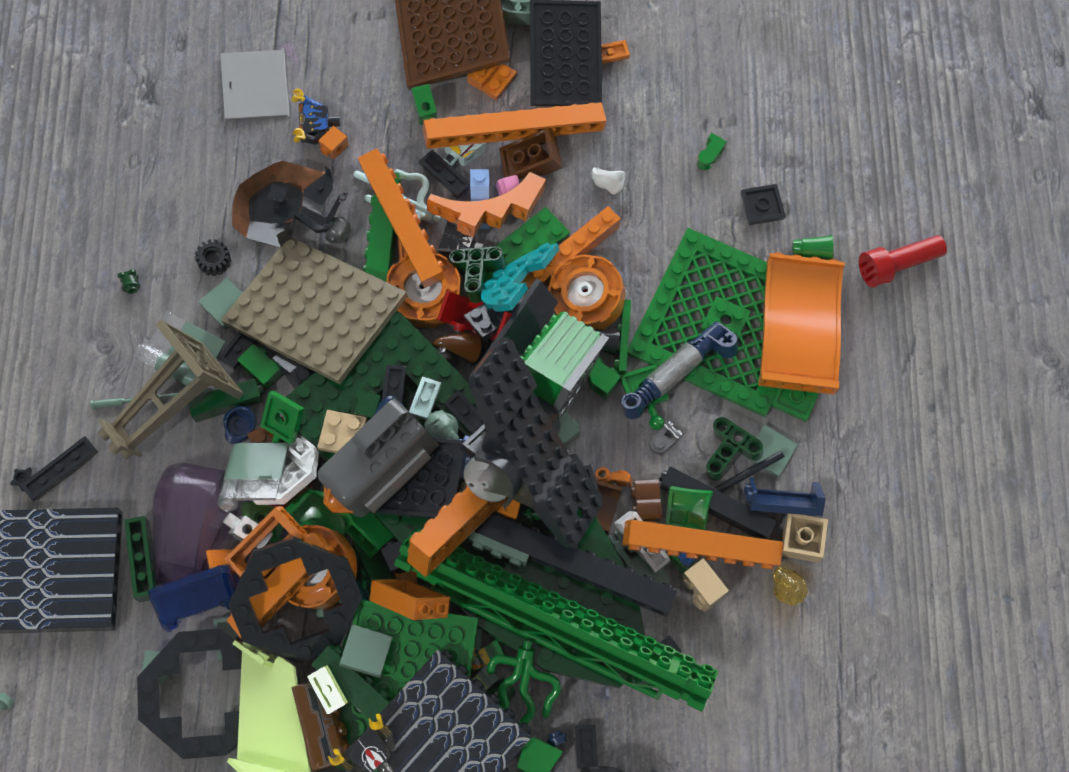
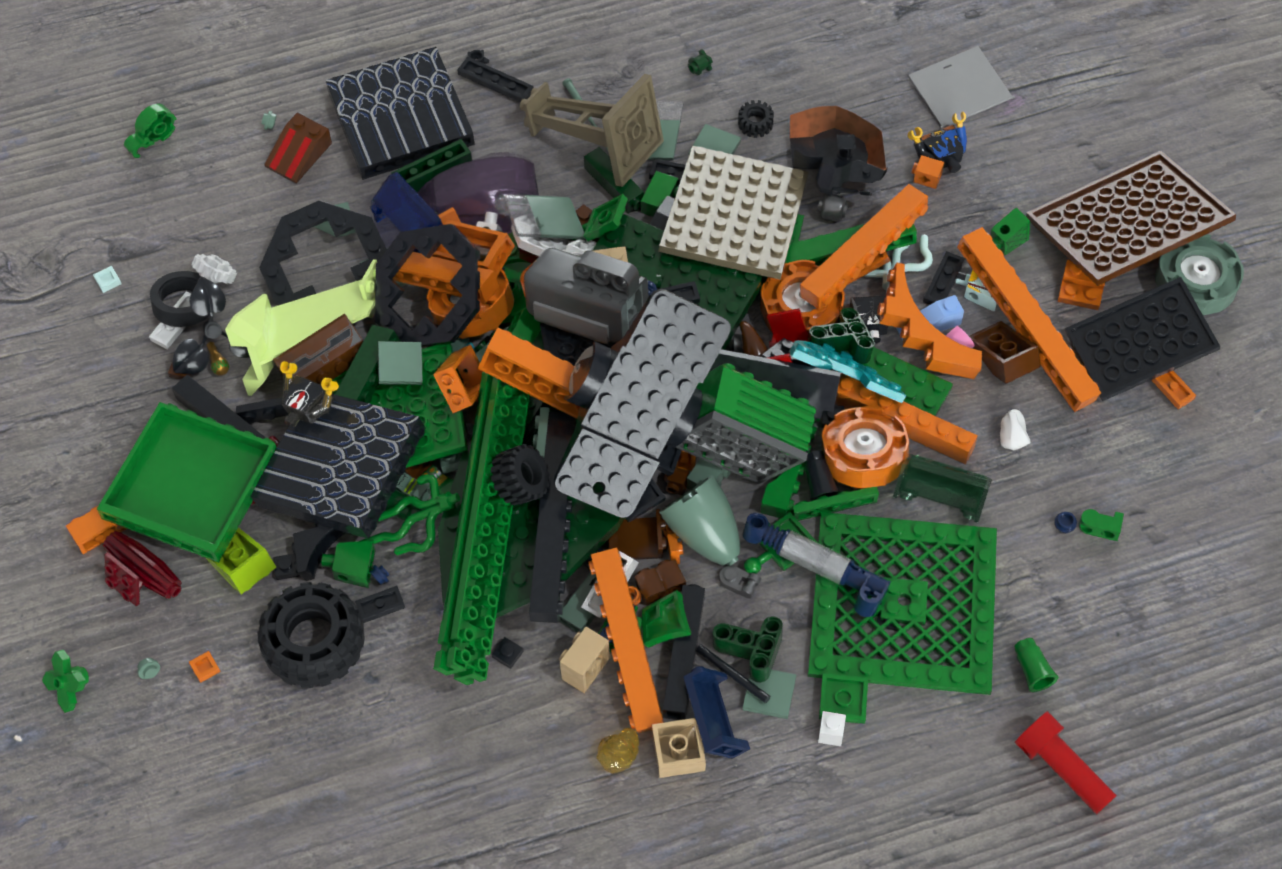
camera: 75 degrees right, 10 degrees down
(52, 682) = (298, 147): none -> reddish brown slope
(238, 423) = (593, 195): dark blue hair -> none
(327, 689) = (352, 343): plate -> none
(541, 576) = (520, 474): none -> black tyre
(608, 443) = (705, 522): none -> sand green cylinder
(640, 242) = (943, 485): none -> clear green windscreen
(698, 177) = (1065, 522): none -> dark blue plate
(762, 204) = (1064, 597): black plate -> none
(802, 324) = (931, 673): orange panel -> none
(821, 414) = (832, 728): none -> white brick

